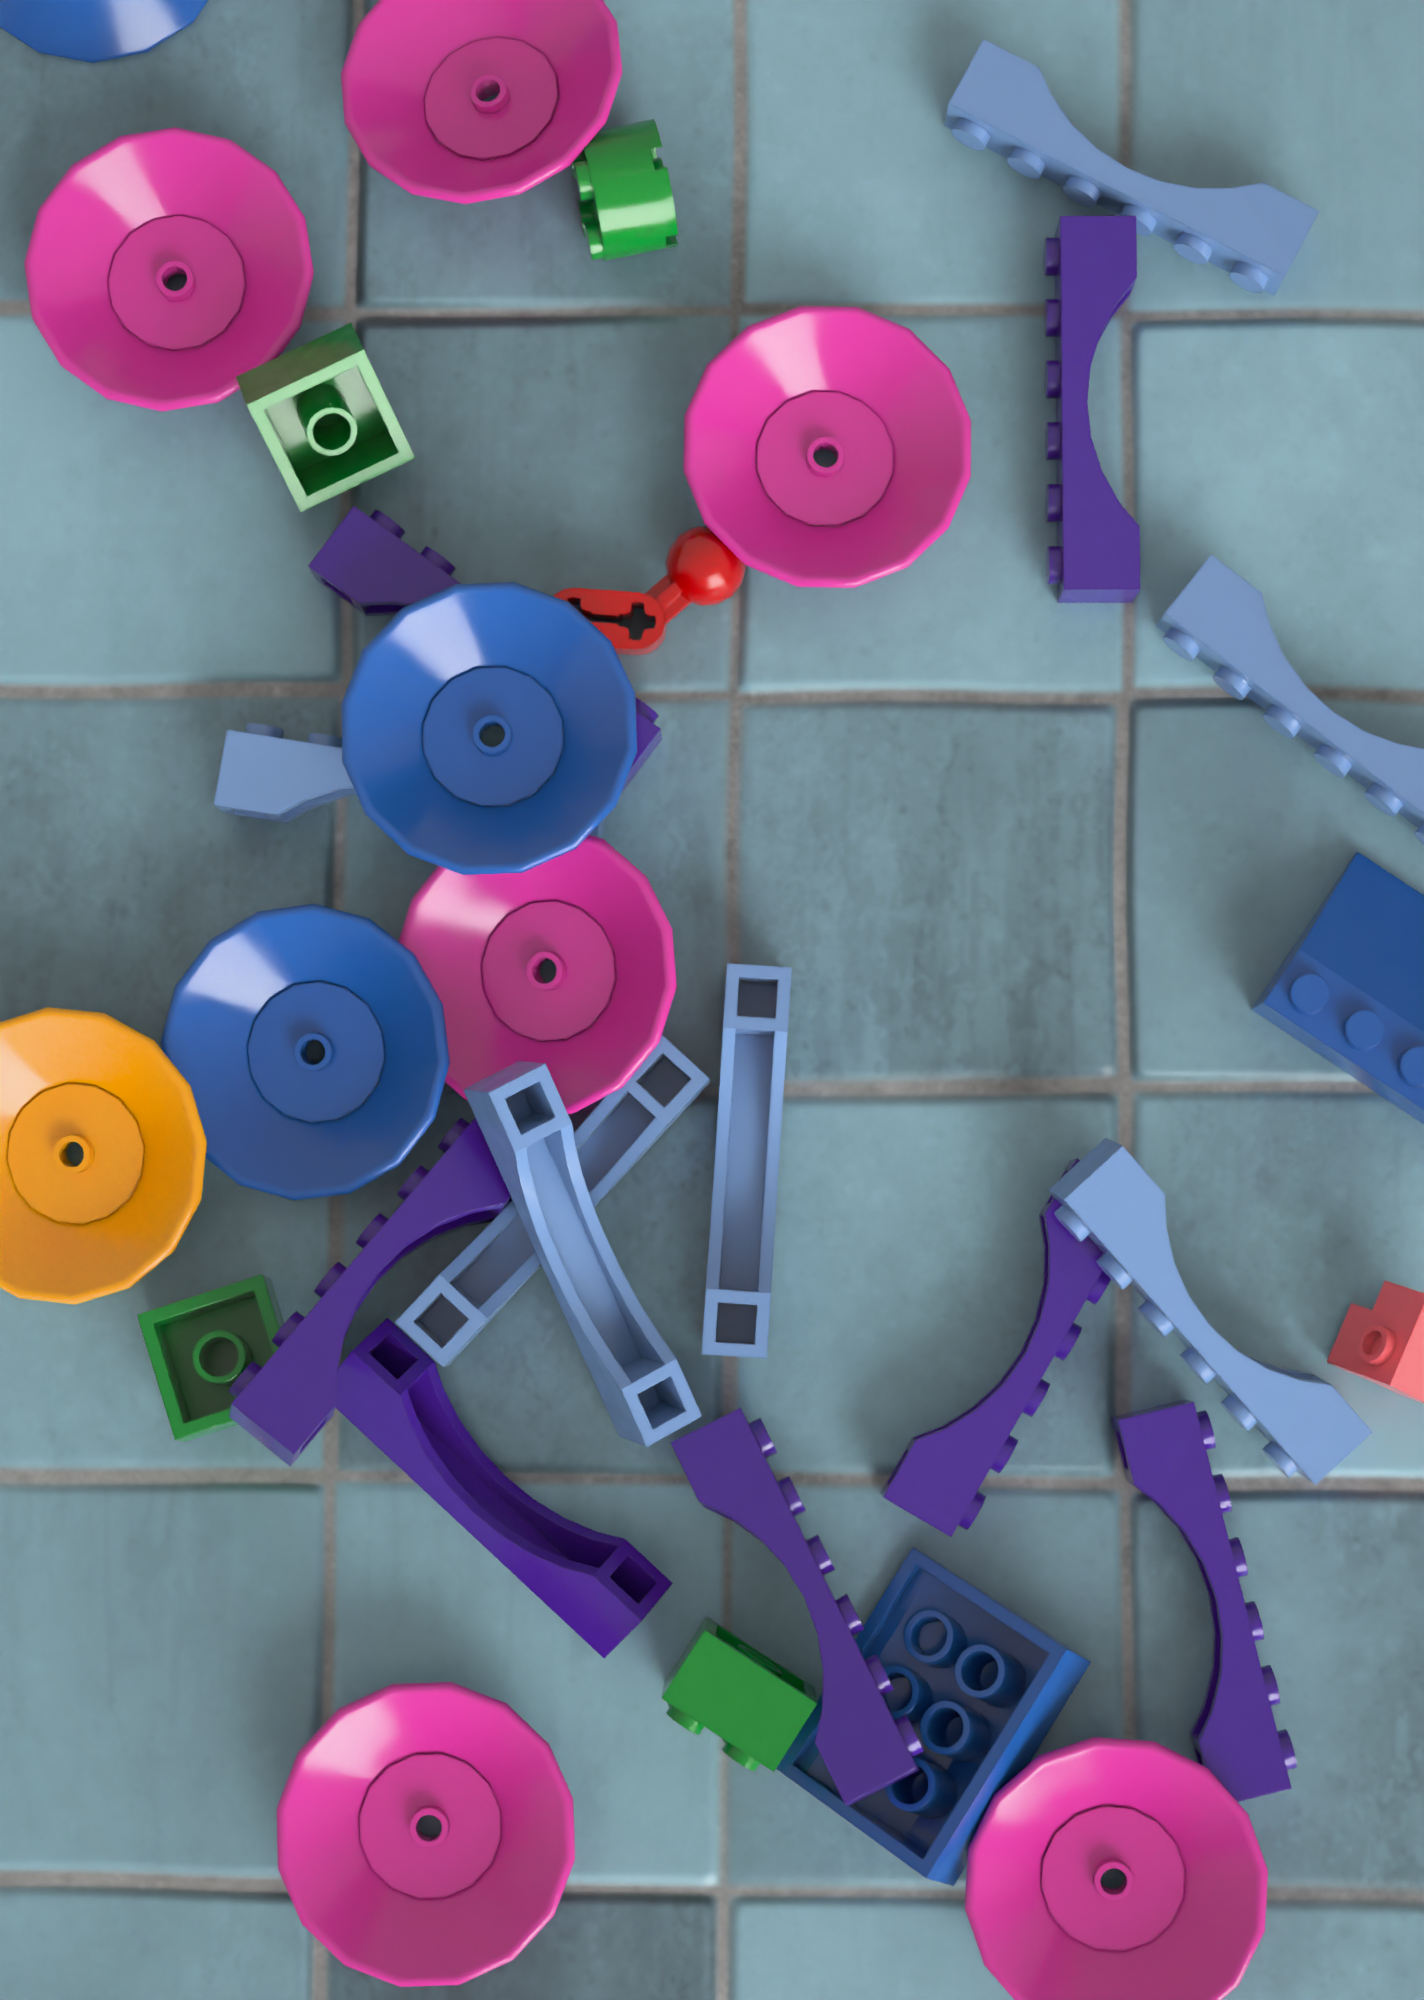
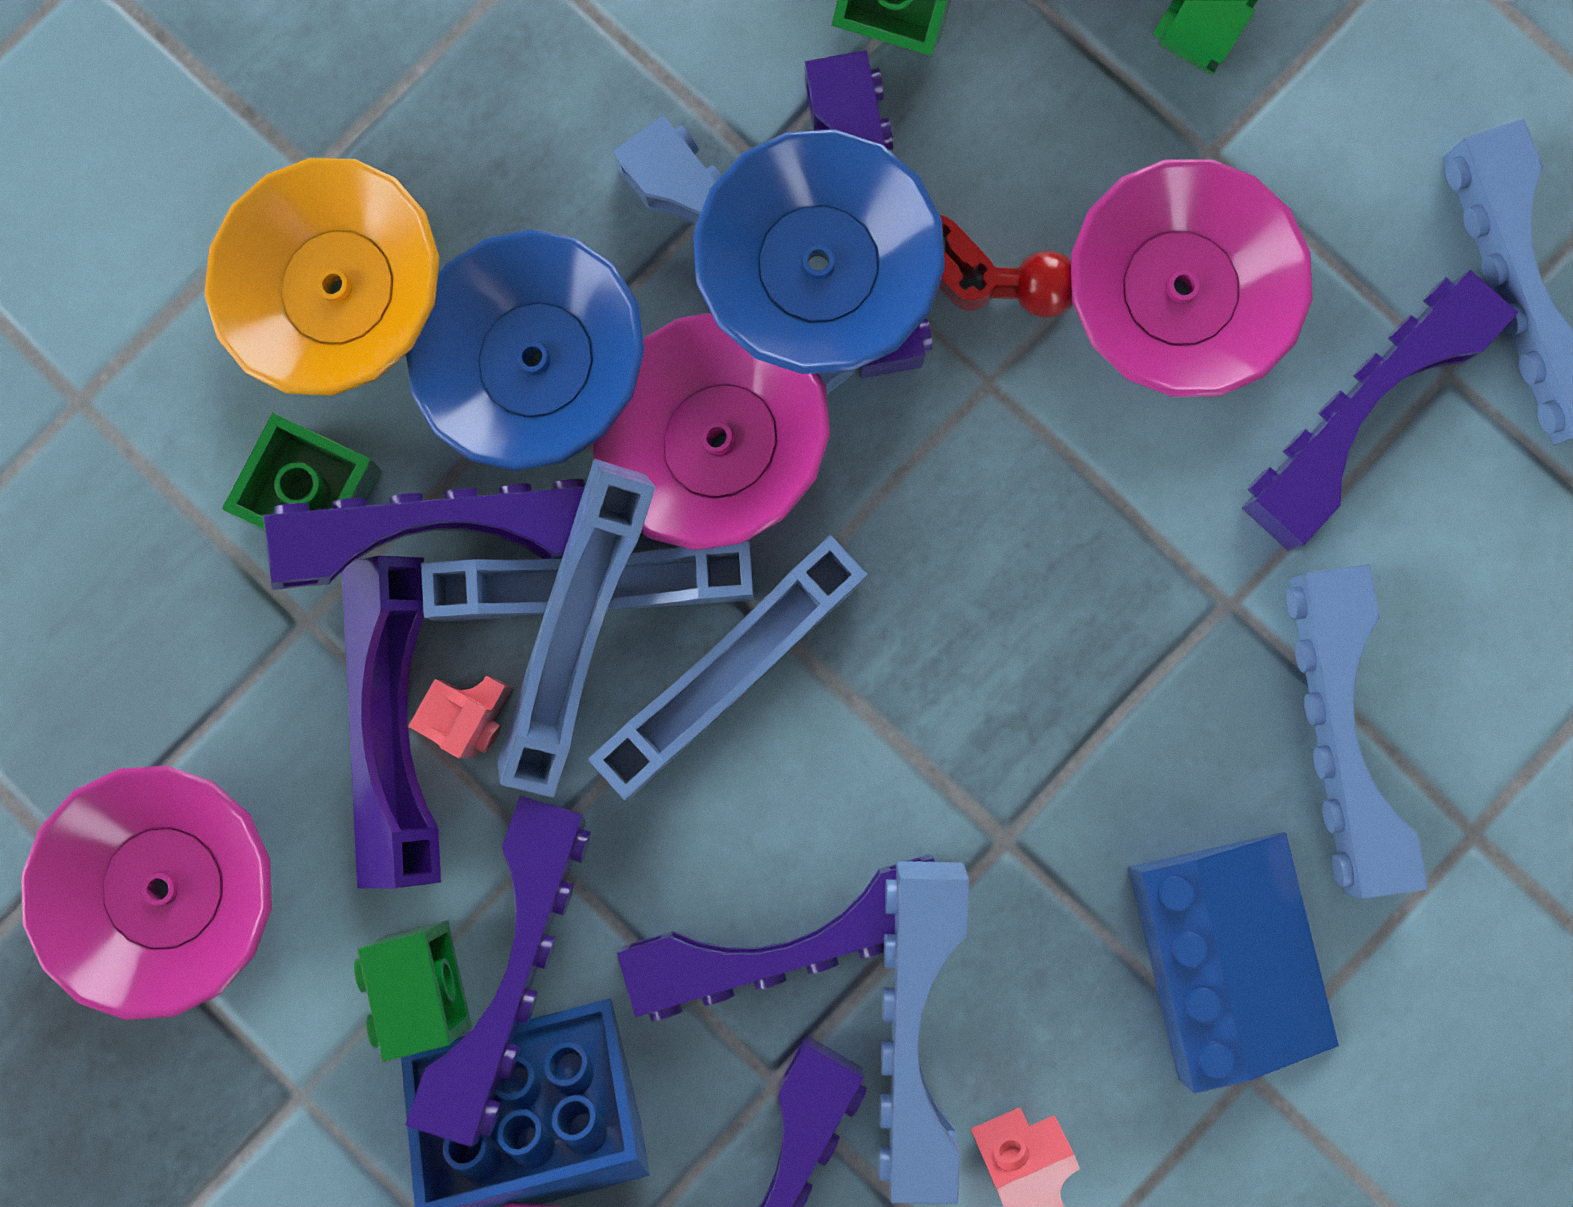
camera: 40 degrees right, 0 degrees up
(552, 1426) = (462, 719): none -> coral brick

